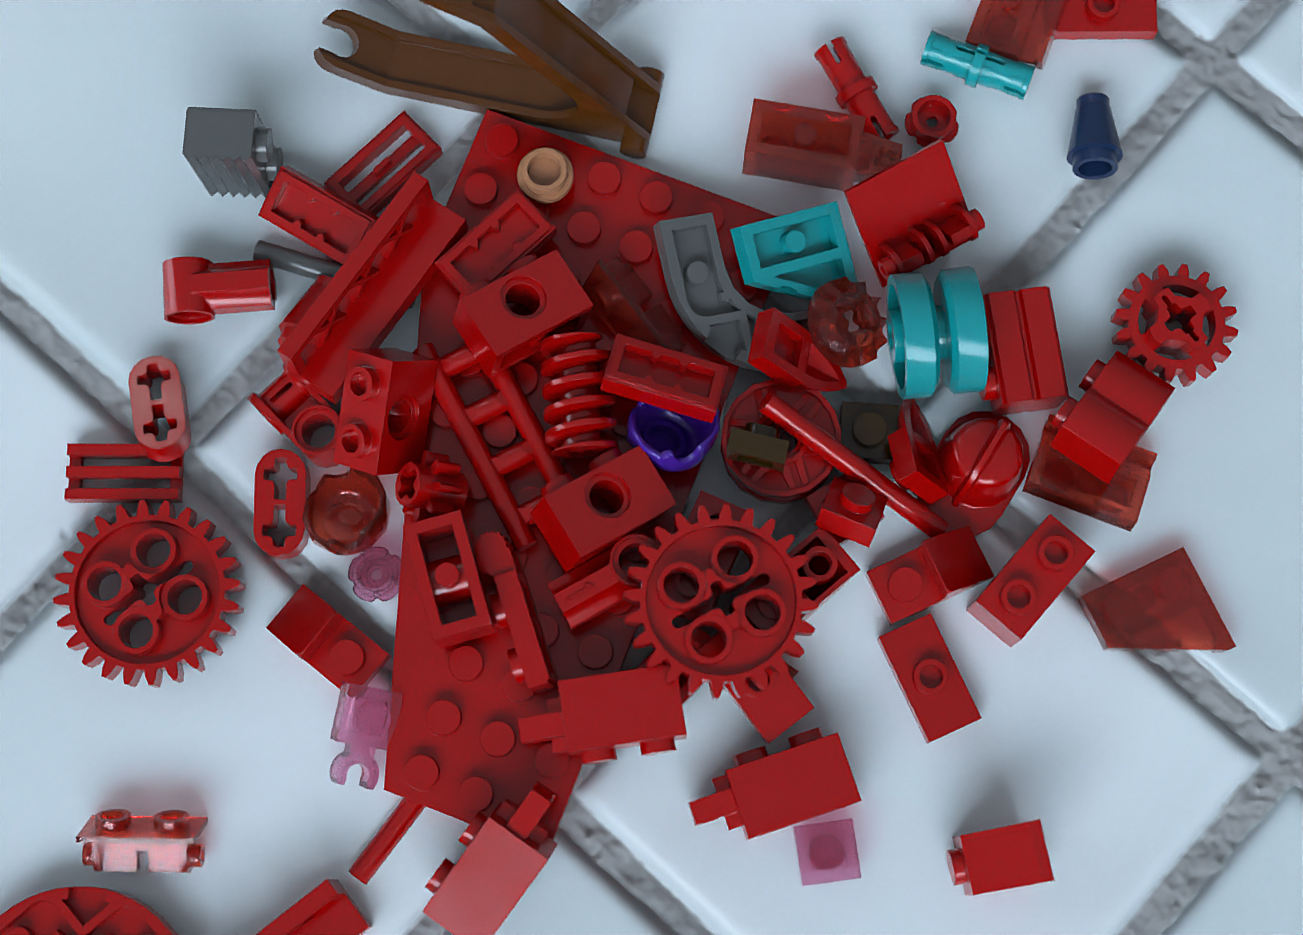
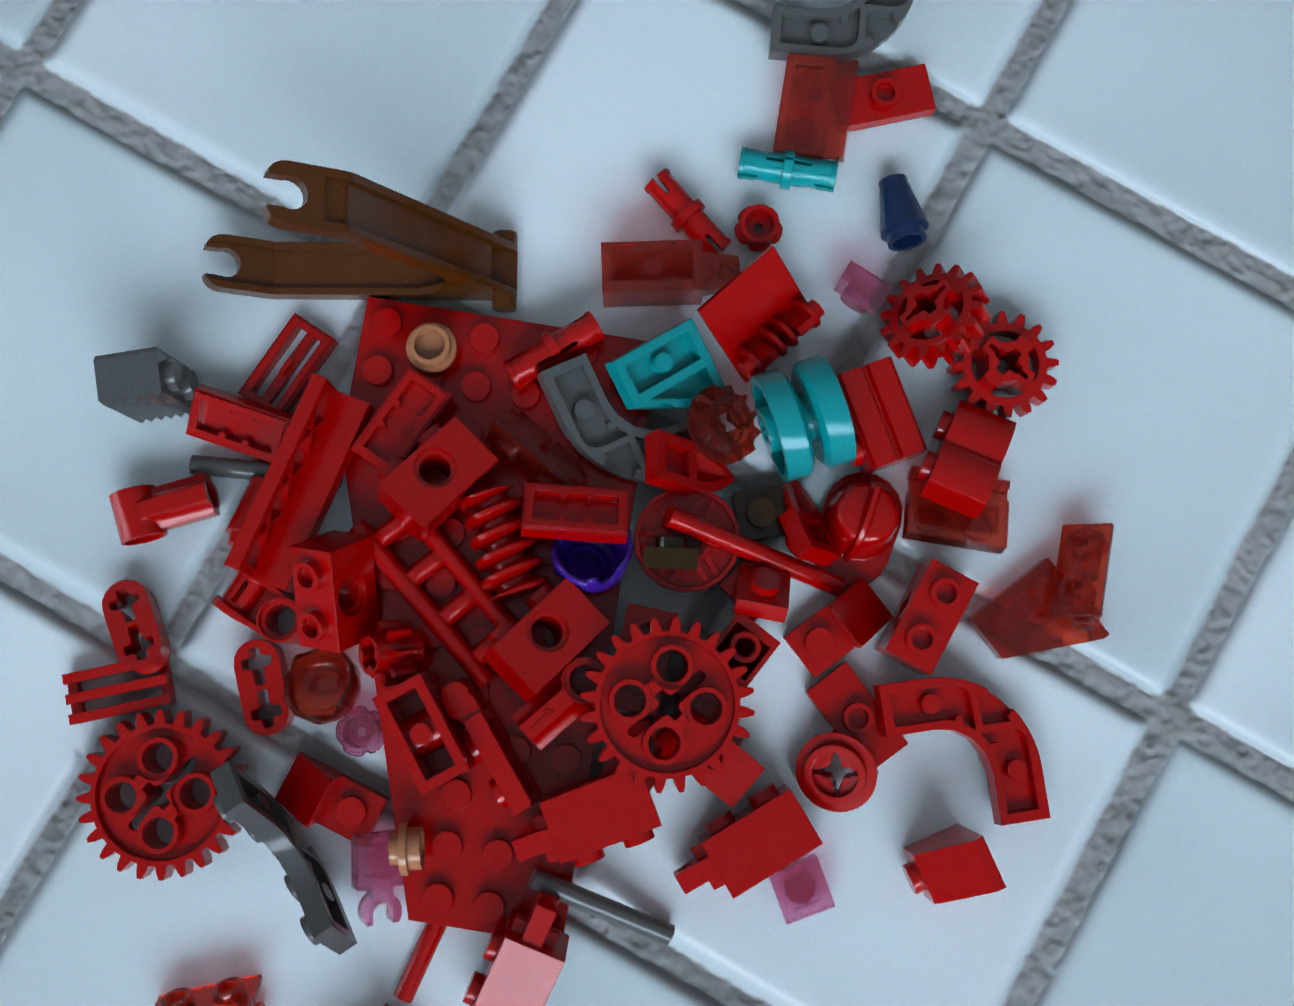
camera: 20 degrees left, 5 degrees up
(282, 718) = (265, 820): none -> dark grey plate
(402, 704) = (407, 848): none -> nougat plate
(602, 821) = (602, 906): none -> dark grey bar
(678, 202) = (553, 349): none -> red pin
(873, 745) = (820, 784): none -> red gear
(1033, 210) = (862, 289): none -> clear pink plate
(1072, 710) = (989, 726): none -> red plate
(1108, 253) = (935, 316): none -> red gear
(1216, 569) = (1082, 573): none -> clear red hinge

